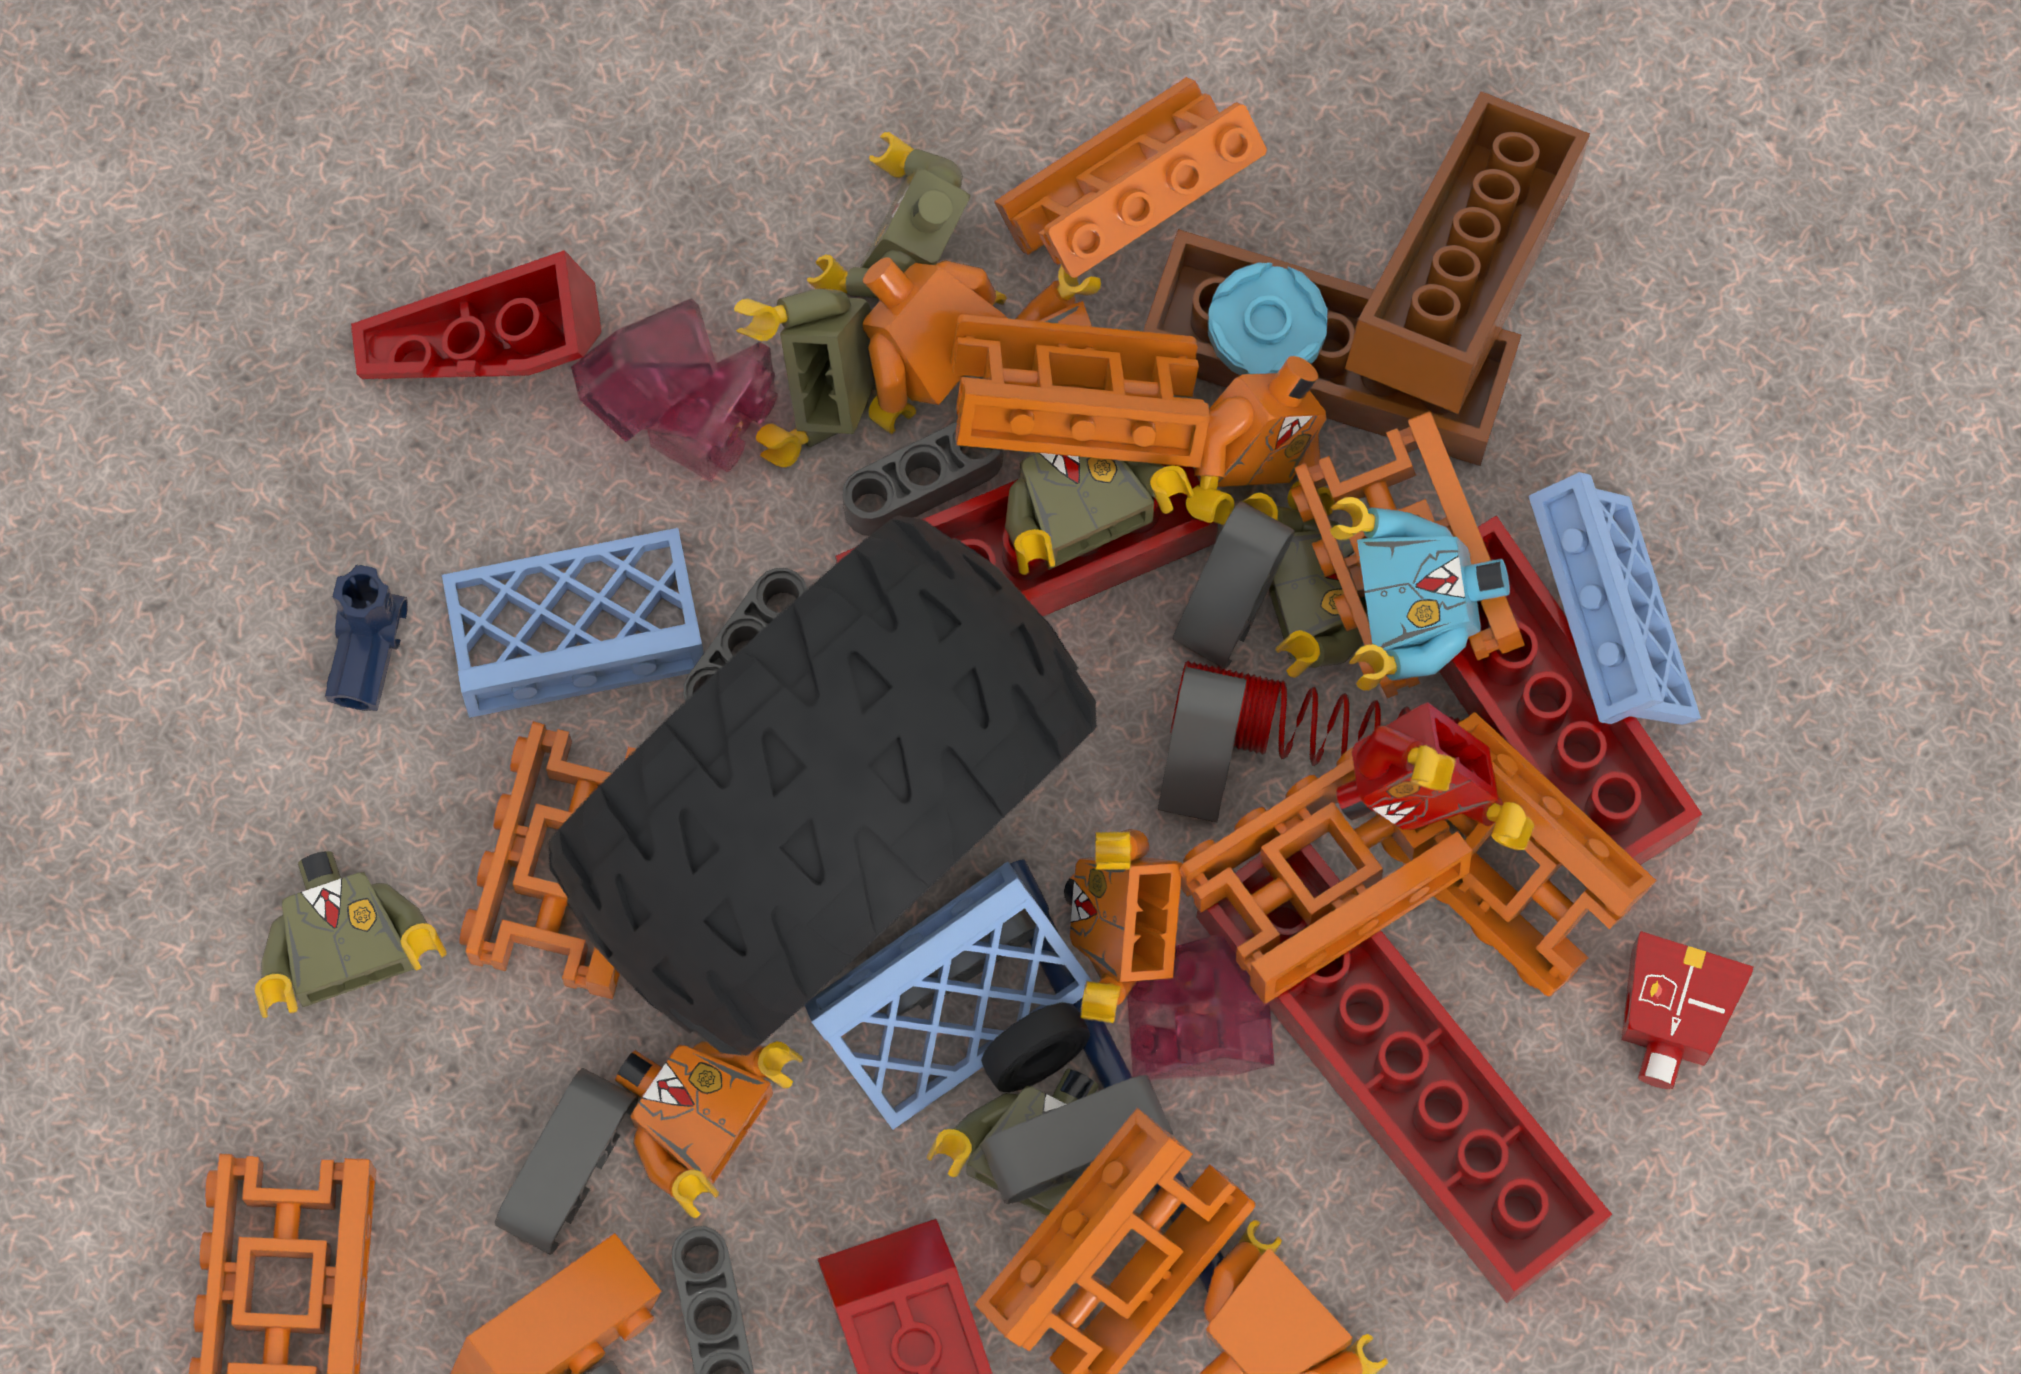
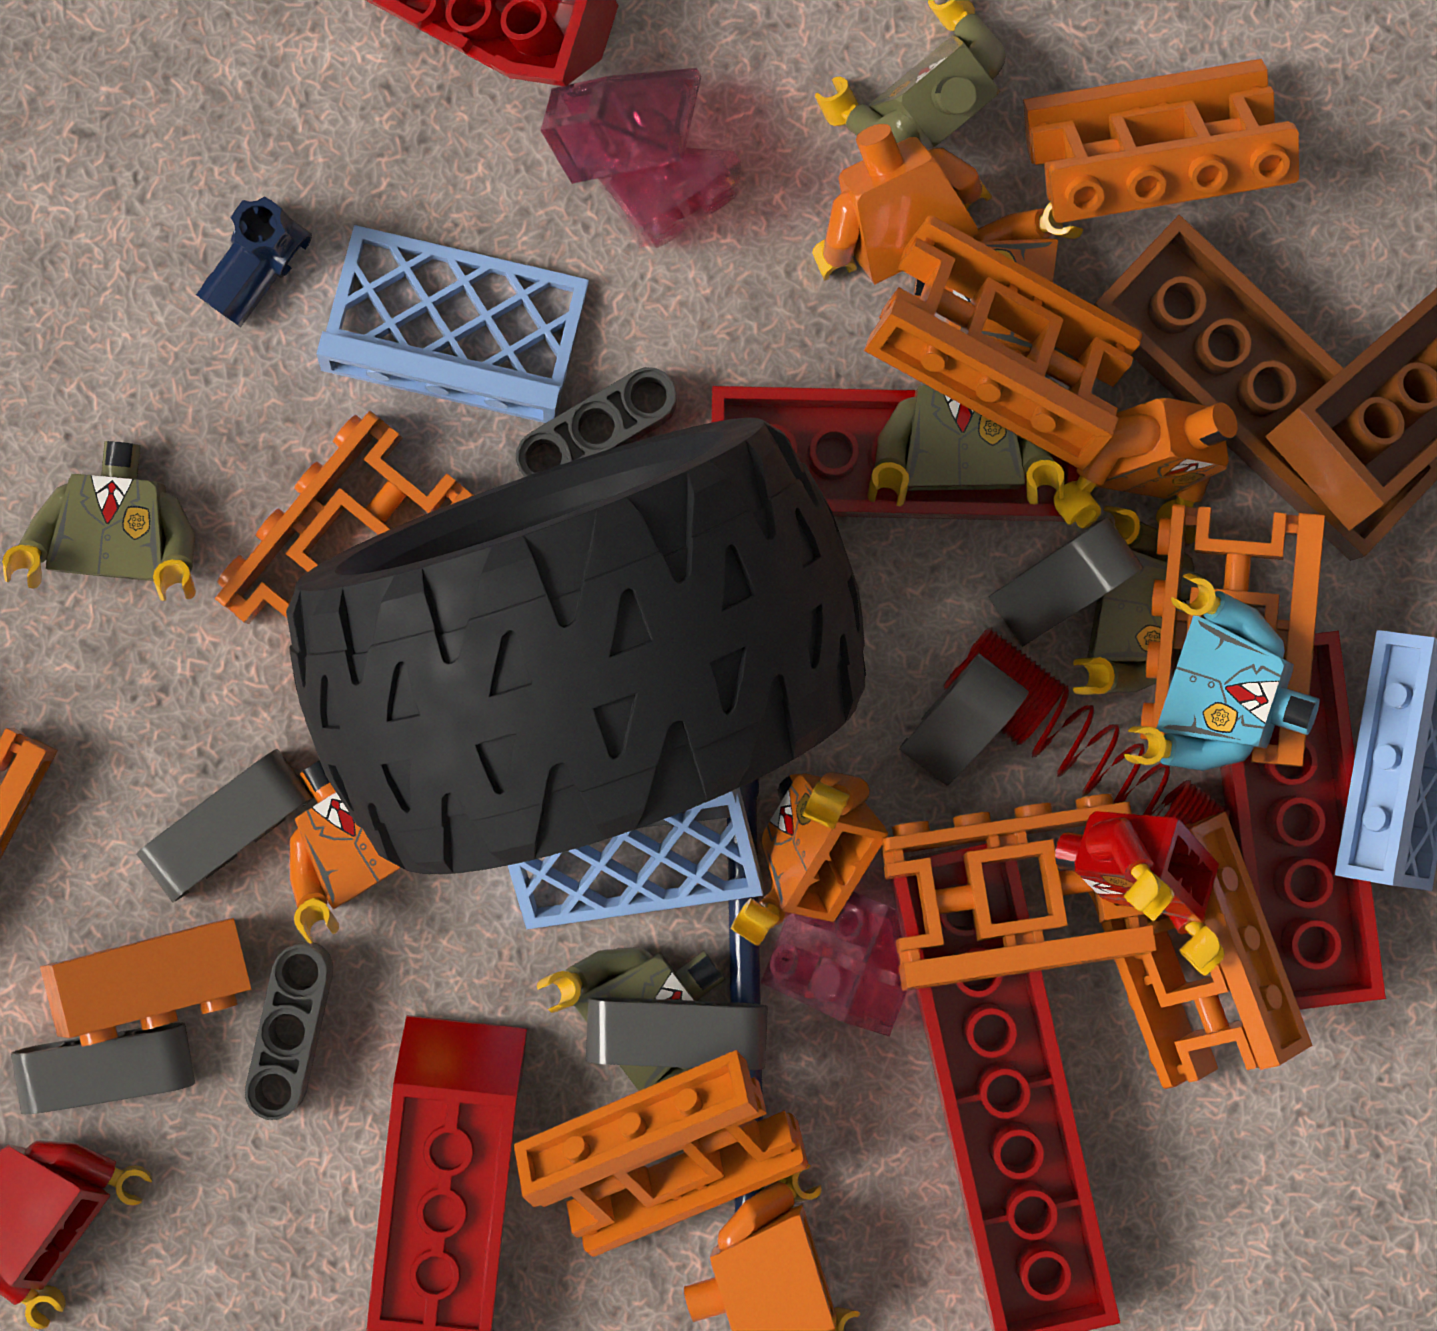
camera: 25 degrees right, 15 degrees up
(824, 365) = (787, 190): olive torso -> none
(890, 479) = (802, 327): dark grey beam -> none
(1035, 1047) = (682, 924): black tyre -> none
(1265, 317) = (1217, 346): medium azure tile -> none
(1678, 1004) = (1277, 1149): red torso -> none

